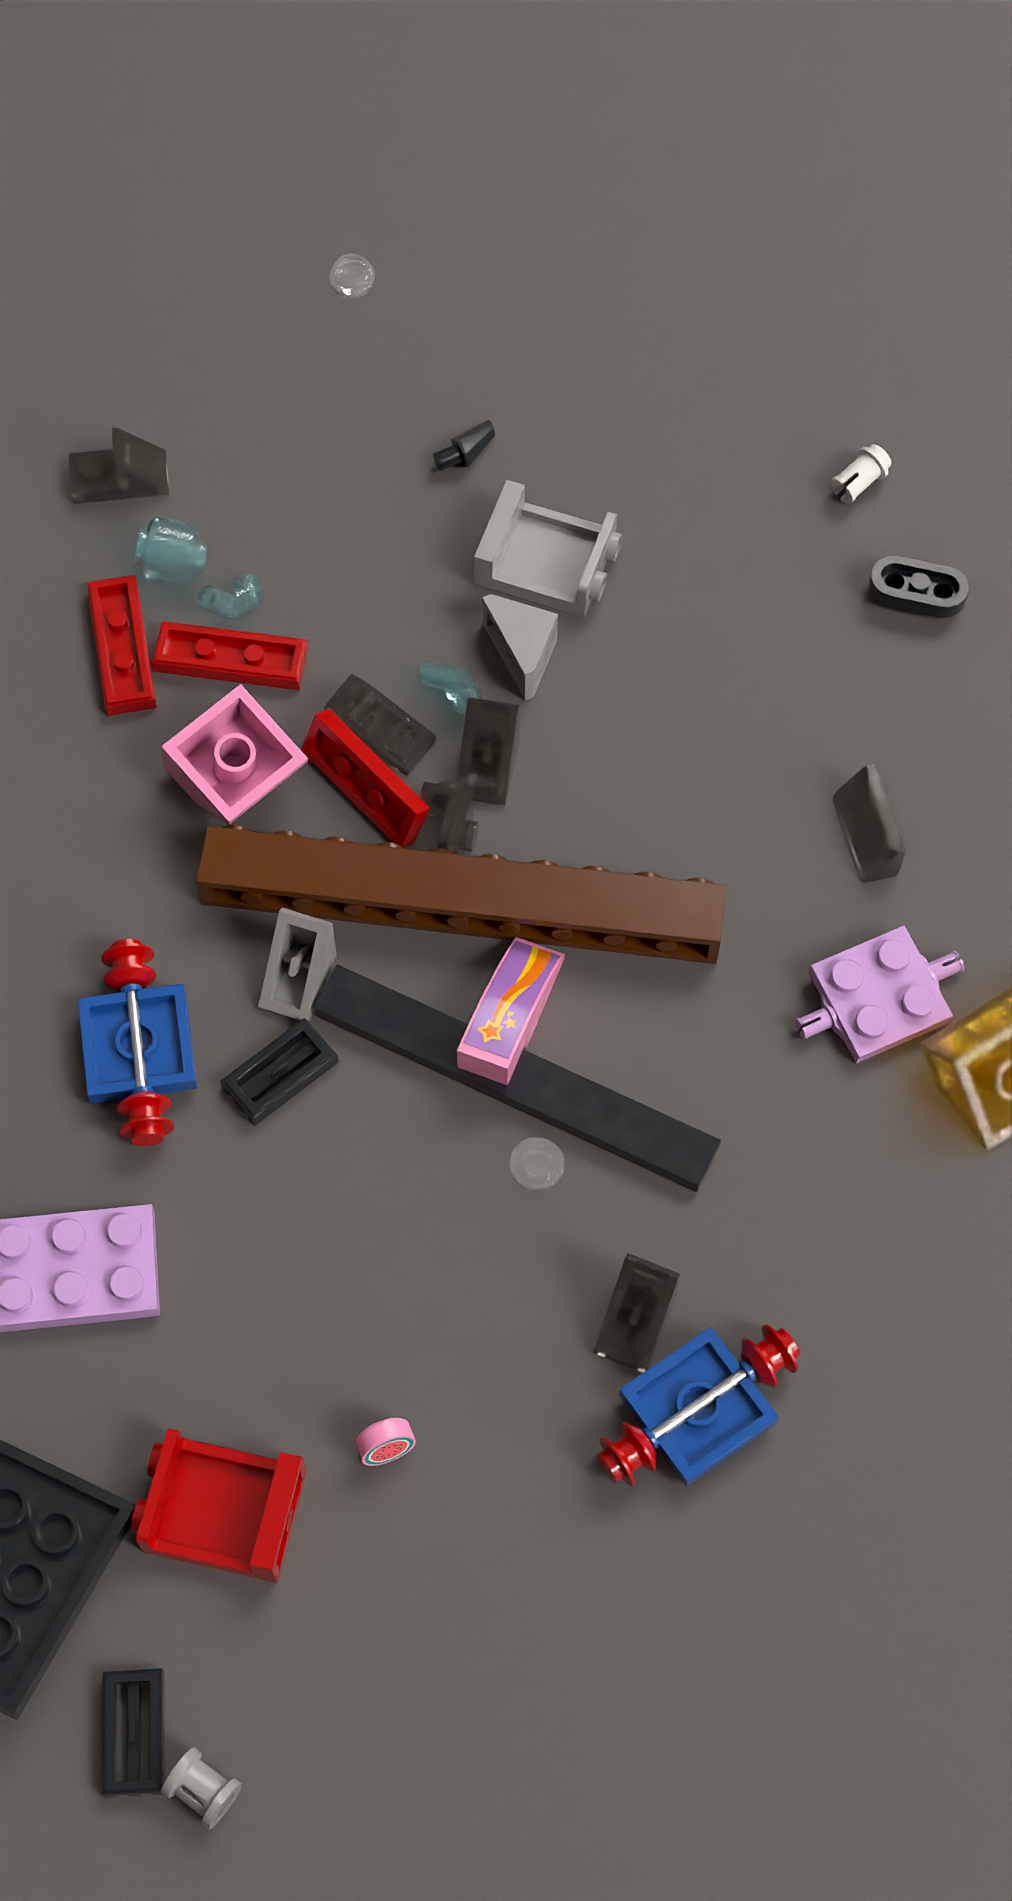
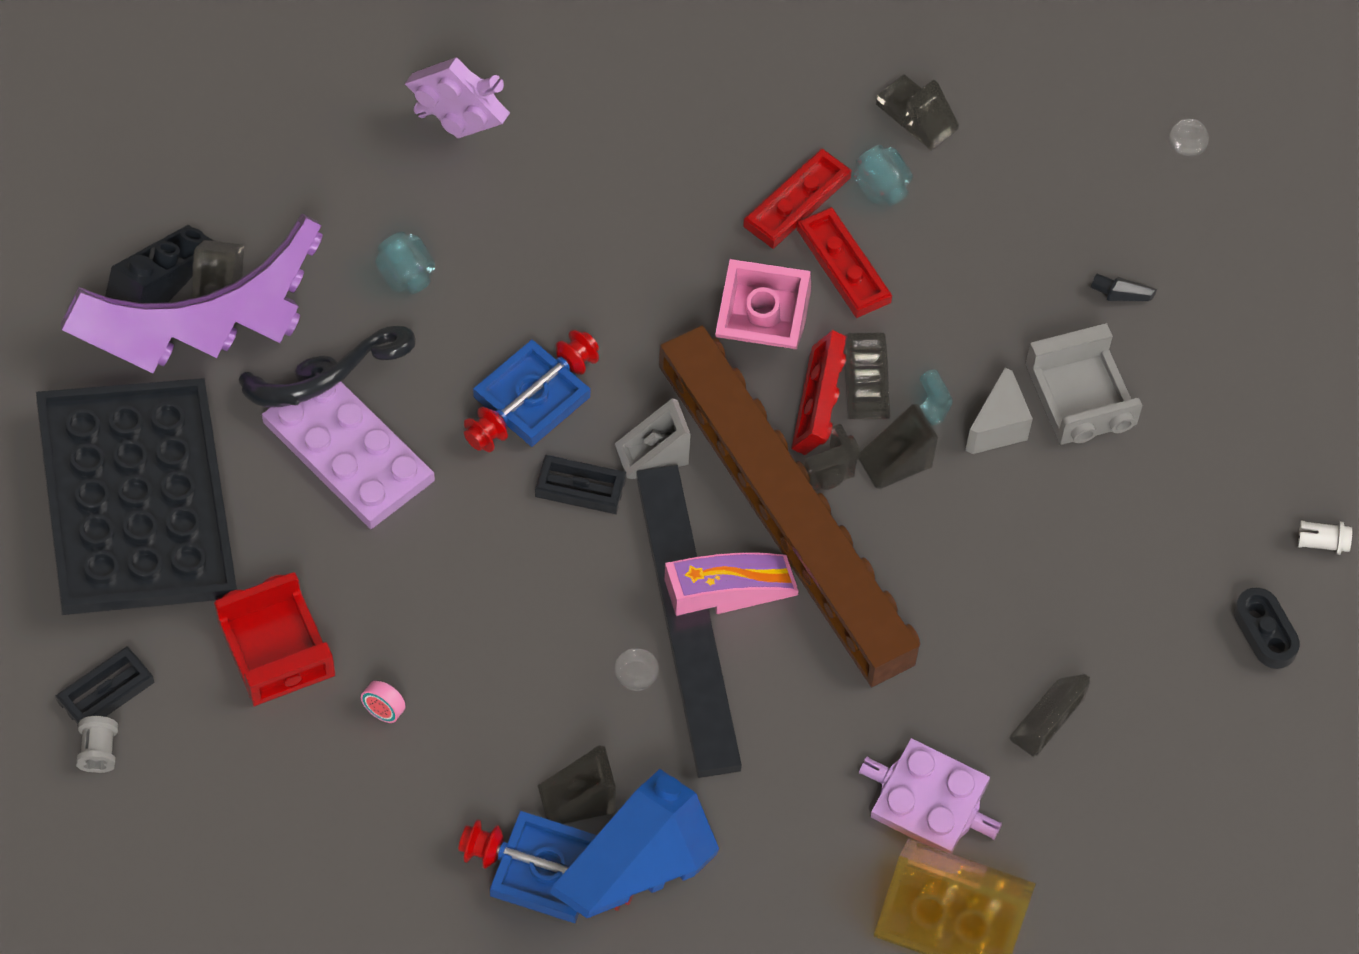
camera: 50 degrees right, 5 degrees down
(245, 597) = (892, 242): clear light blue arm -> none
(762, 1301) = (646, 843): none -> blue wedge

